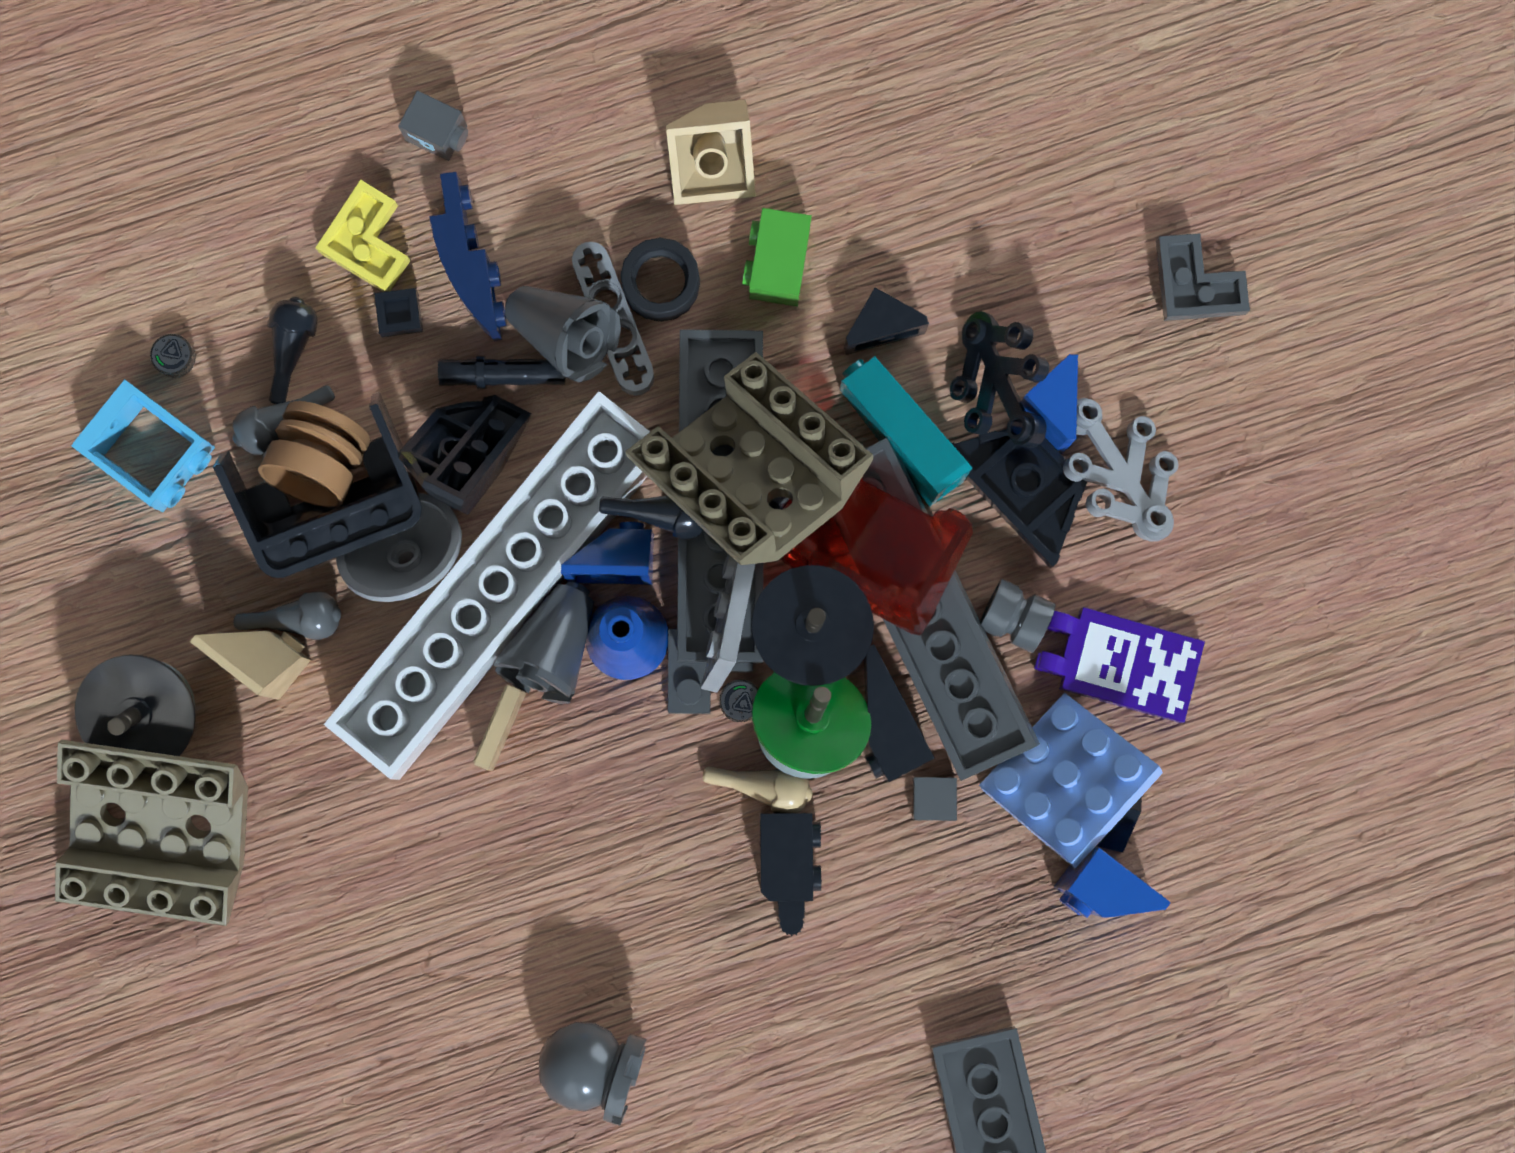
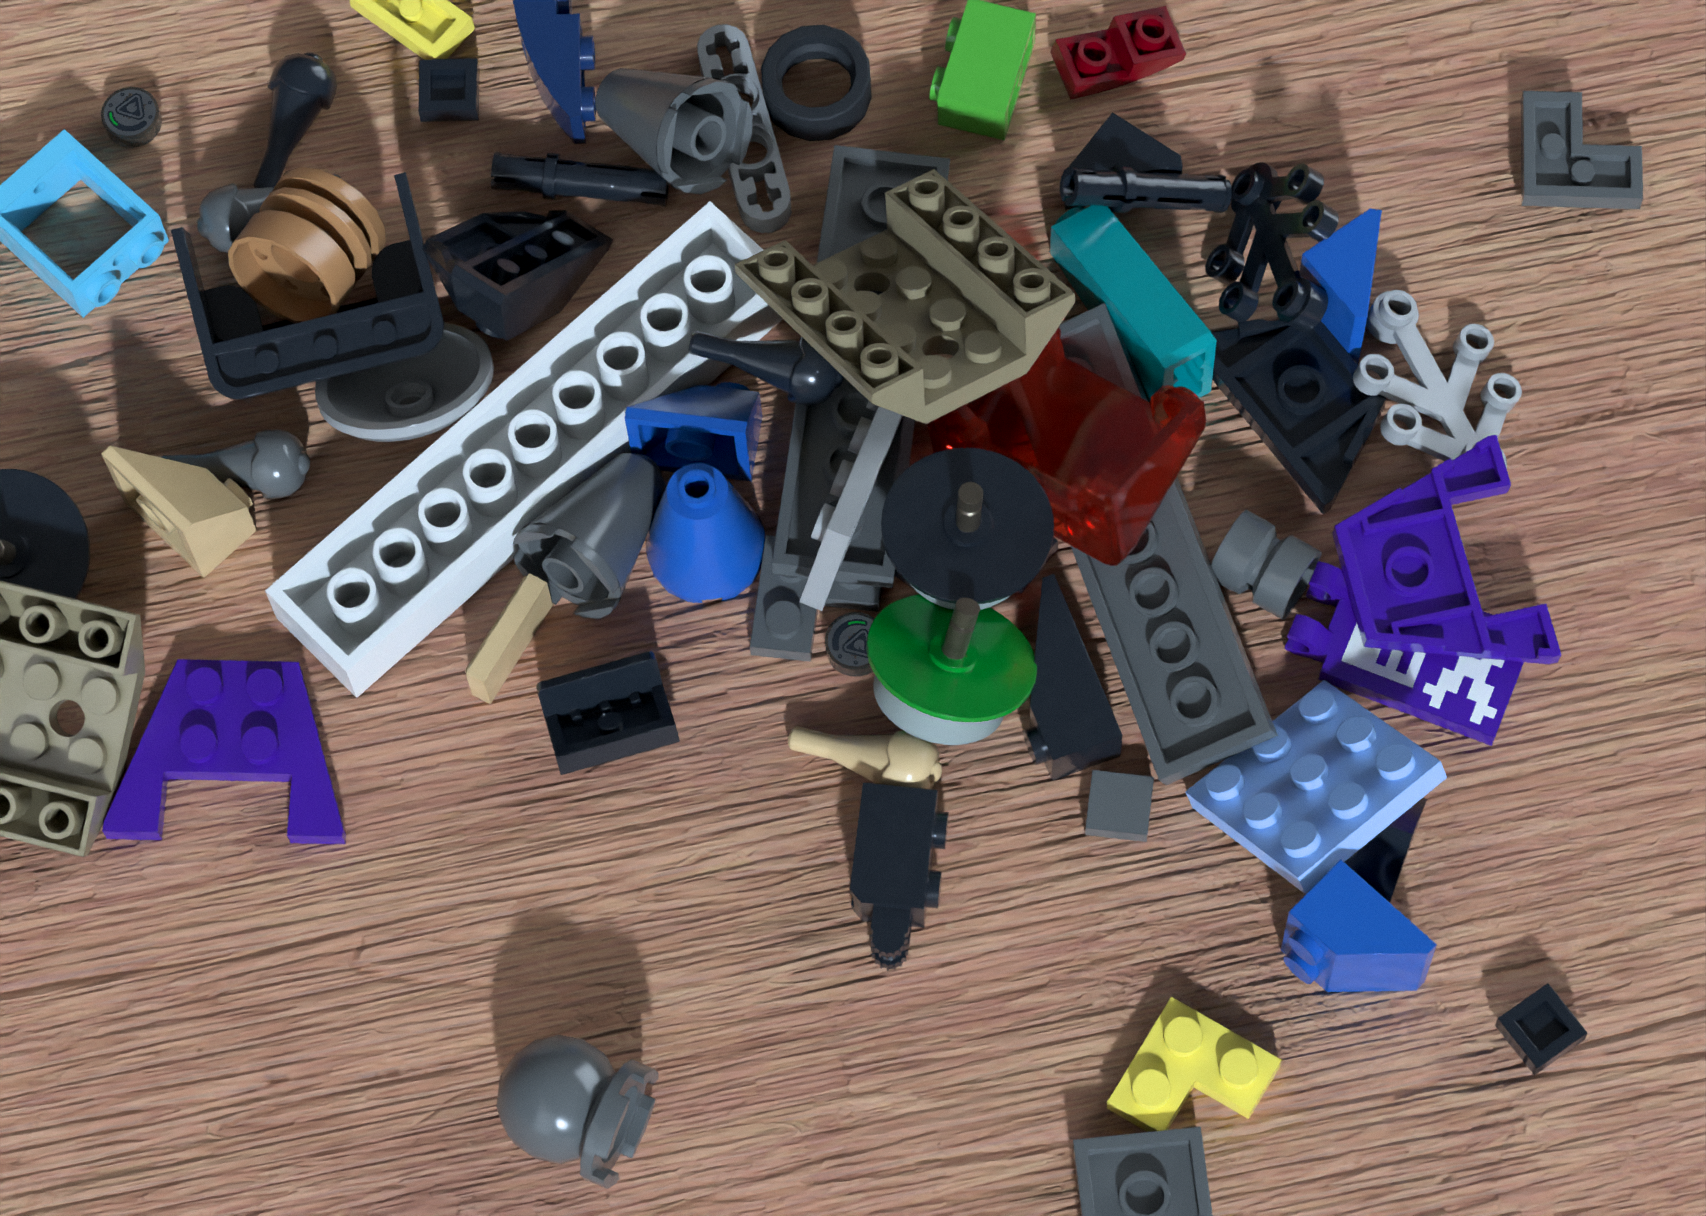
camera: 15 degrees right, 15 degrees down
(317, 810) = (230, 726): none -> dark purple wing
(576, 777) = (607, 712): none -> black bracket
(870, 233) = (1125, 52): none -> dark red slope
(891, 346) = (1126, 189): none -> black pin
(1000, 971) = (1188, 1053): none -> light yellow plate
(1120, 614) = (1413, 574): none -> dark purple wing
(1235, 928) = (1541, 1029): none -> black plate

